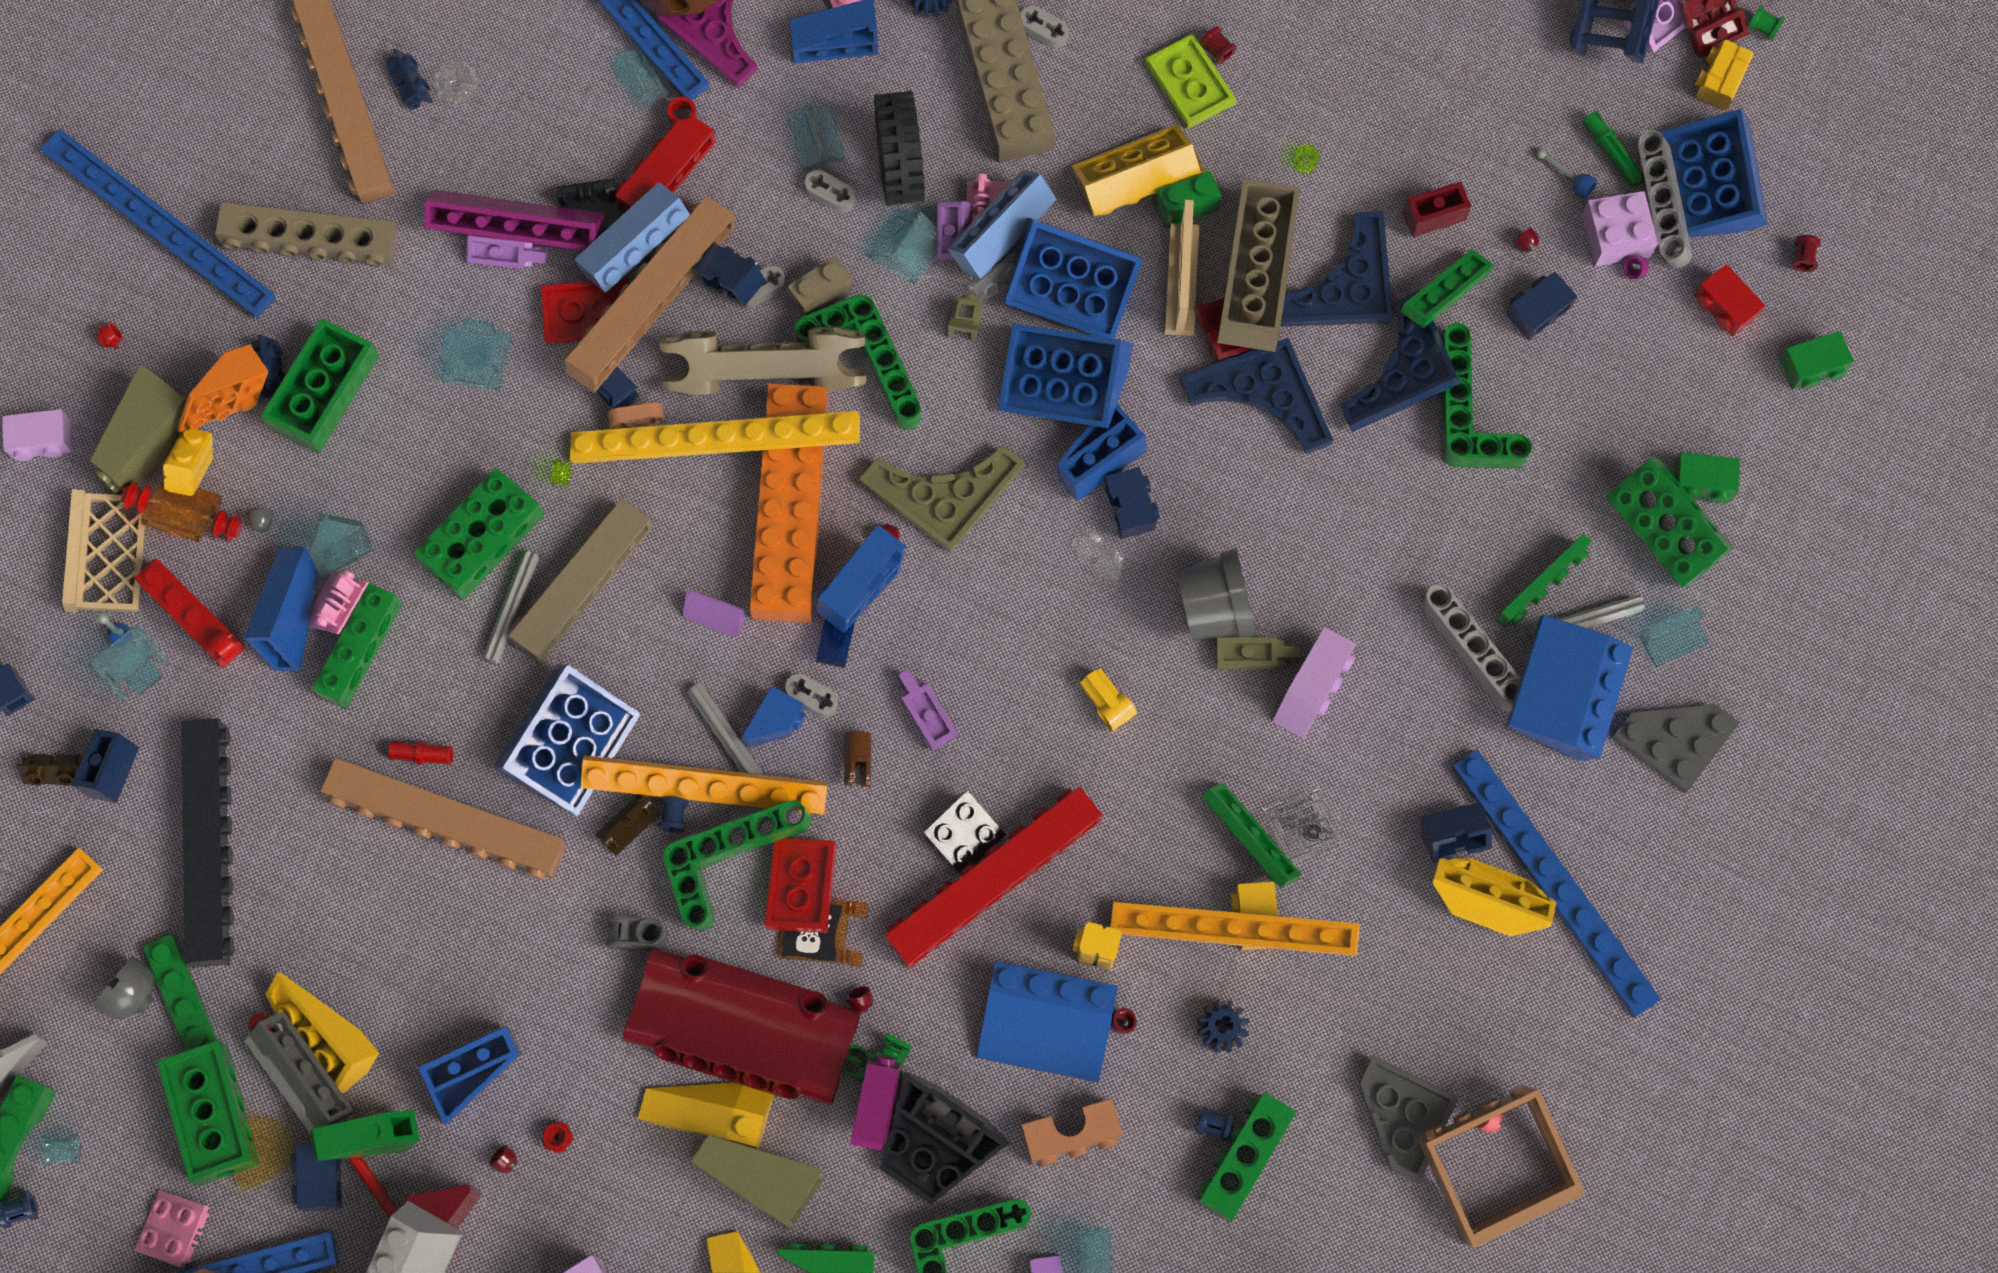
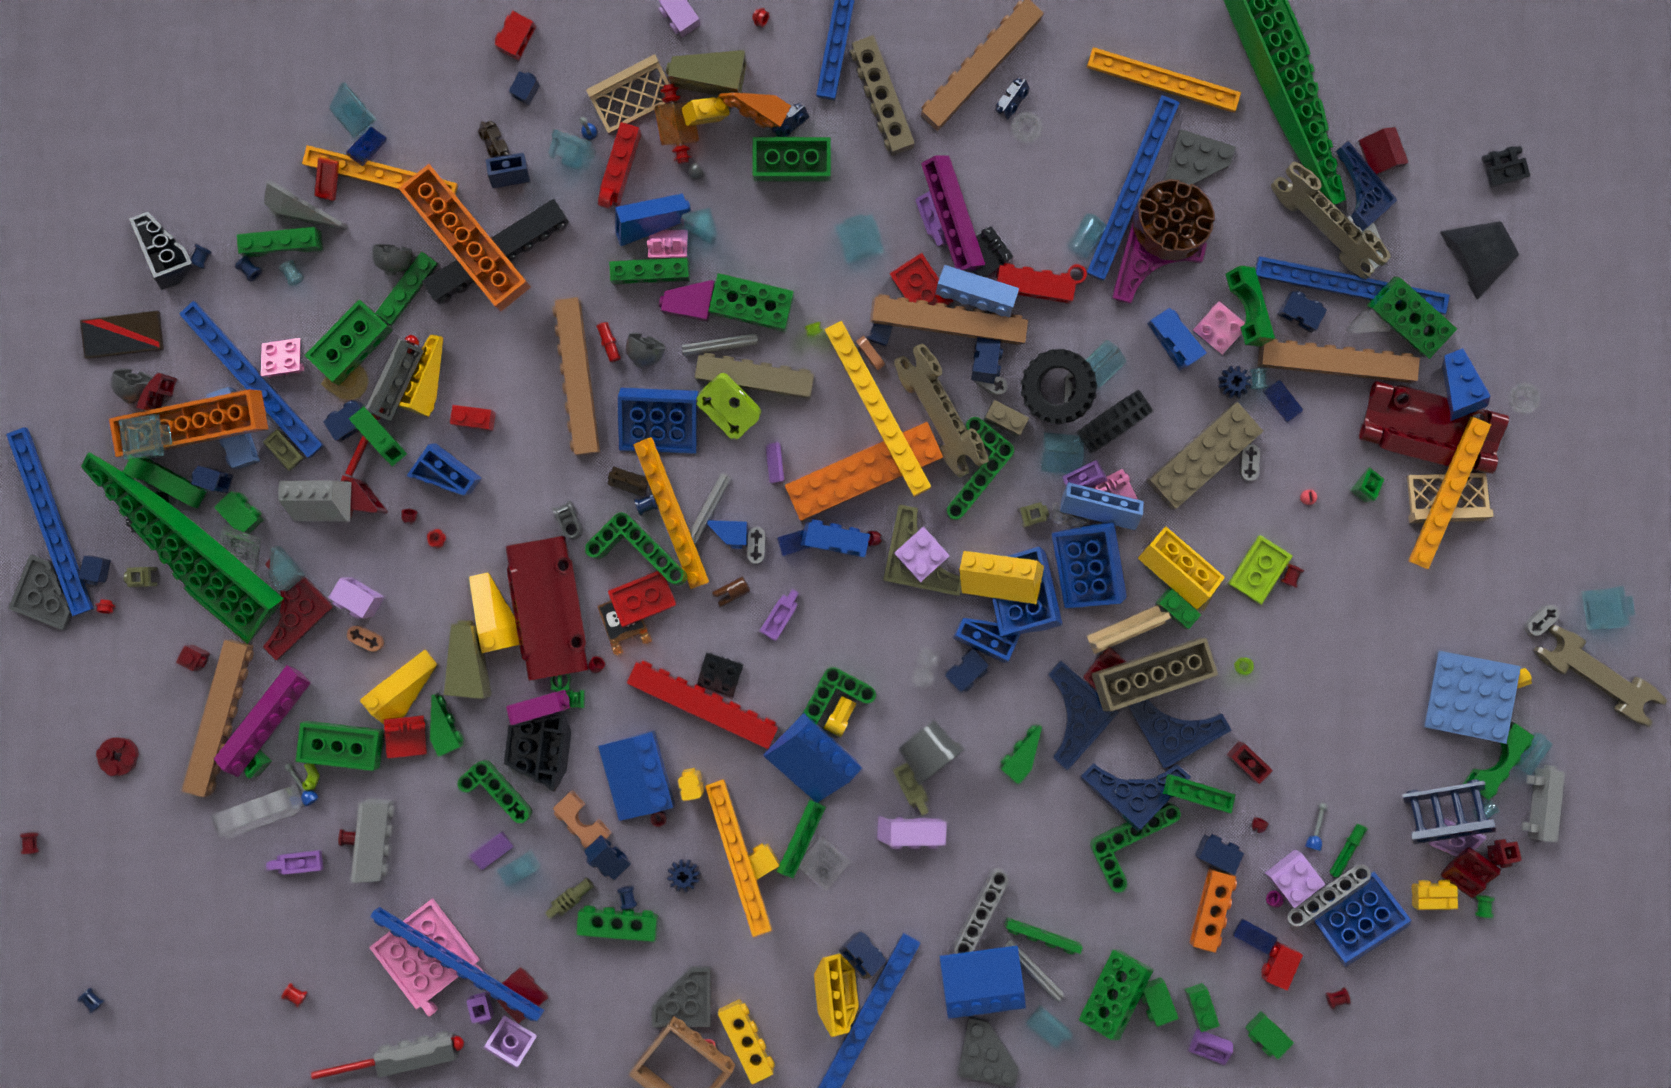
camera: 65 degrees right, 15 degrees up
(161, 863) = (464, 237): none -> orange brick
(416, 992) = (472, 417): none -> red brick
(429, 615) = (689, 301): none -> magenta slope
(460, 708) = (644, 350): none -> dark grey cylinder
(604, 641) = (725, 411): none -> lime axle
(843, 226) = (1085, 386): none -> black tyre
(942, 478) = (921, 554): none -> lavender brick
(1027, 390) = (1000, 577): none -> yellow slope
(1077, 713) = (831, 686): none -> green beam
(1140, 1118) = (608, 860): none -> dark blue brick
(1147, 759) = (812, 759): none -> blue slope
(1175, 1209) = (569, 898): none -> olive hinge
(1288, 490) = (1021, 760): none -> green slope
(1553, 1051) = (755, 1070): none -> yellow brick
(1615, 364) = (1214, 880): none -> orange brick
(1673, 315) = (1254, 936): none -> clear blue plate
(1739, 425) = (1202, 1007): none -> green brick
(1800, 443) = (1211, 1047): none -> medium lavender slope

